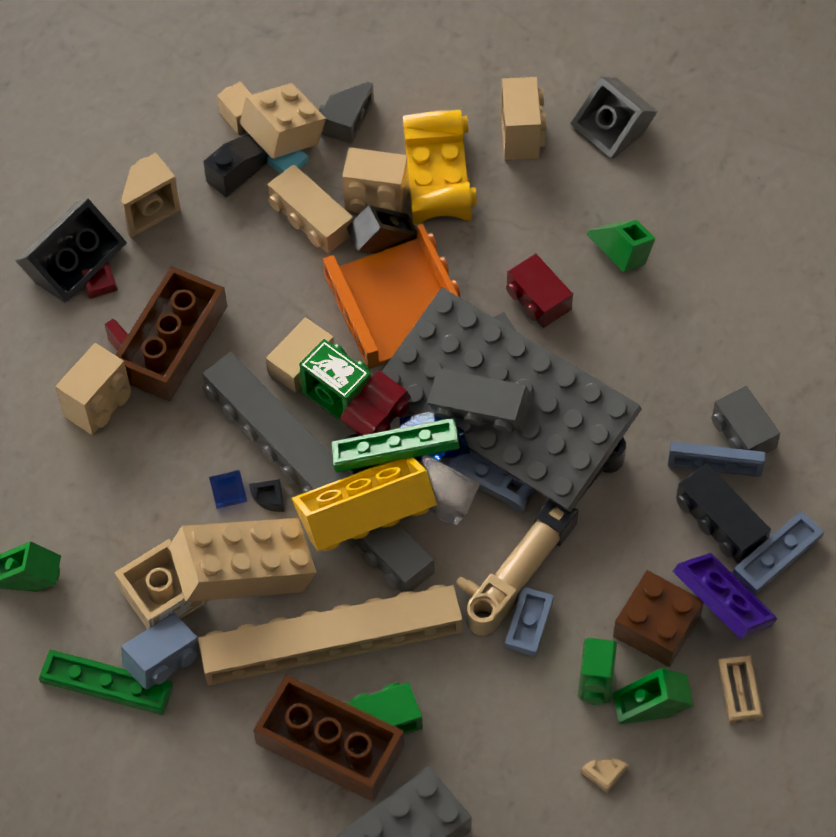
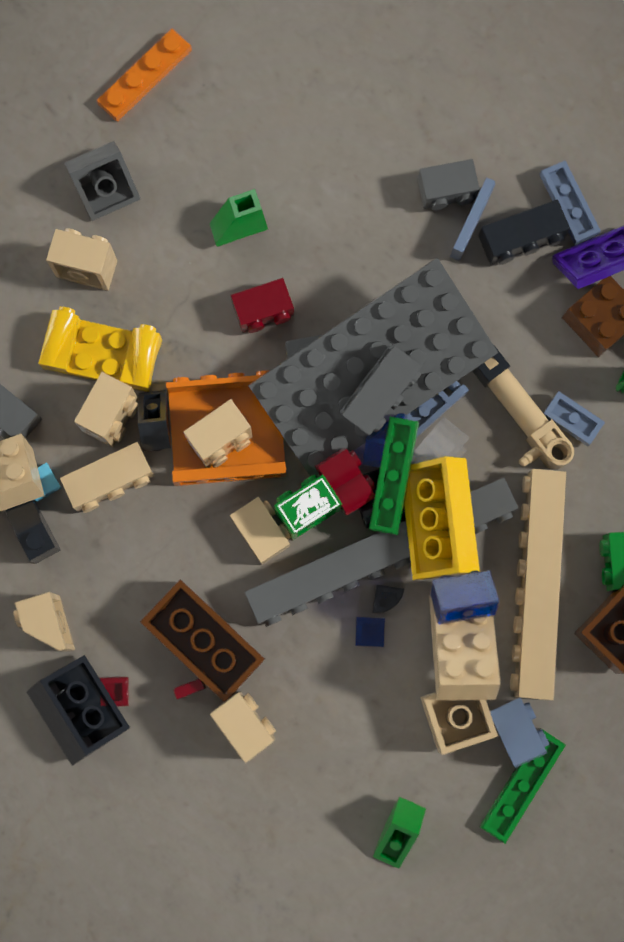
camera: 80 degrees left, 20 degrees up
(283, 534) = (464, 597): none -> clear blue brick
(384, 281) = (219, 434): none -> tan brick
(744, 122) = (144, 75): none -> orange plate

